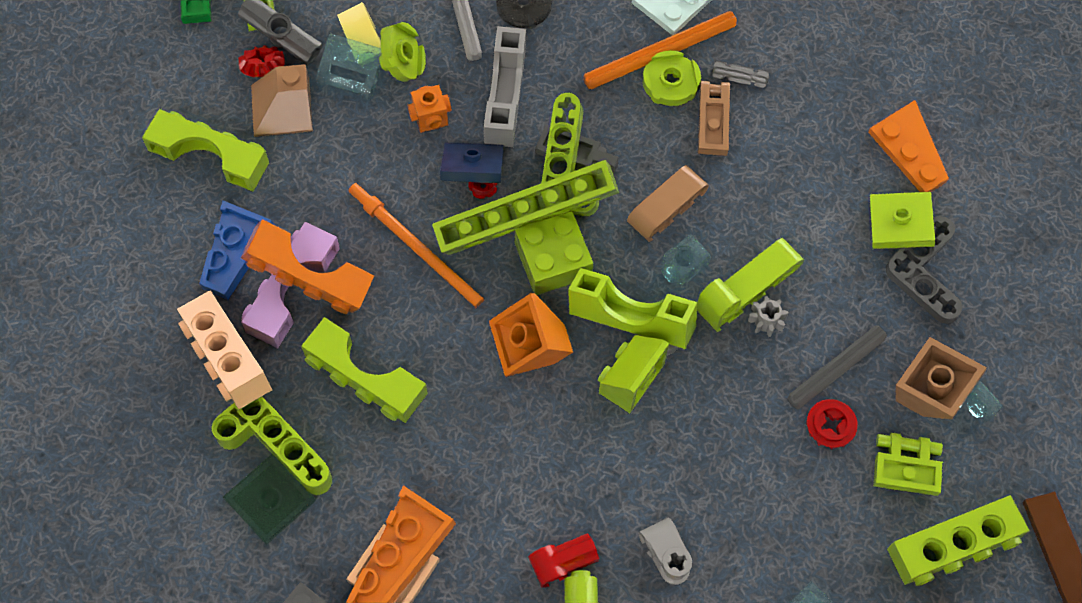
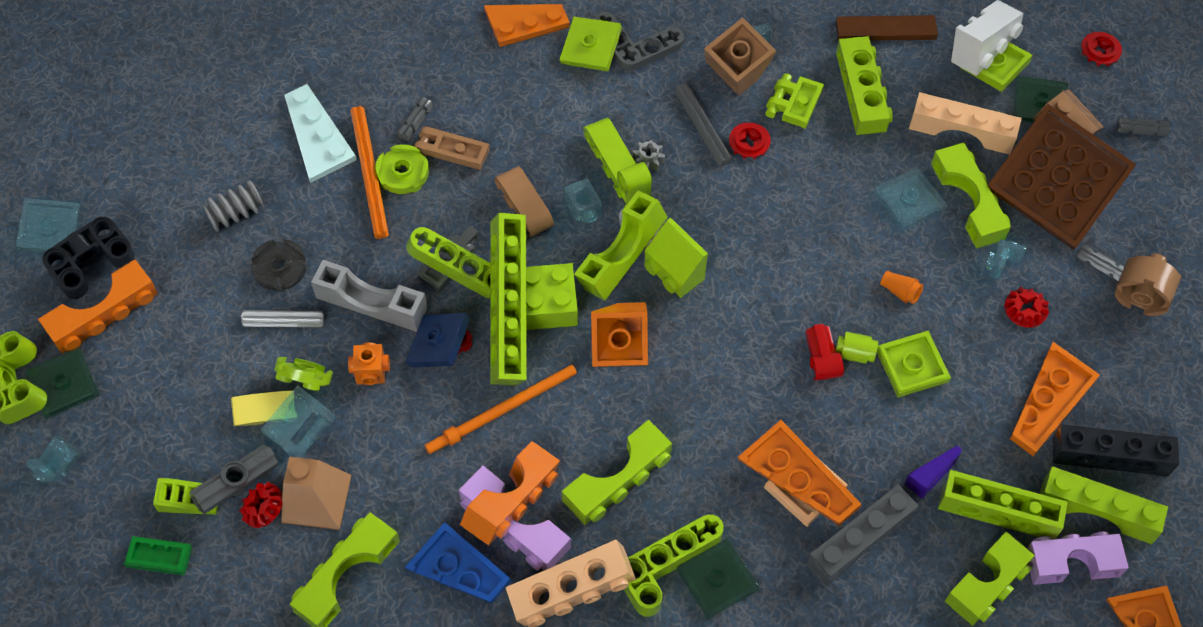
camera: 75 degrees left, 5 degrees down
(666, 546) = (830, 277): light grey piece -> none

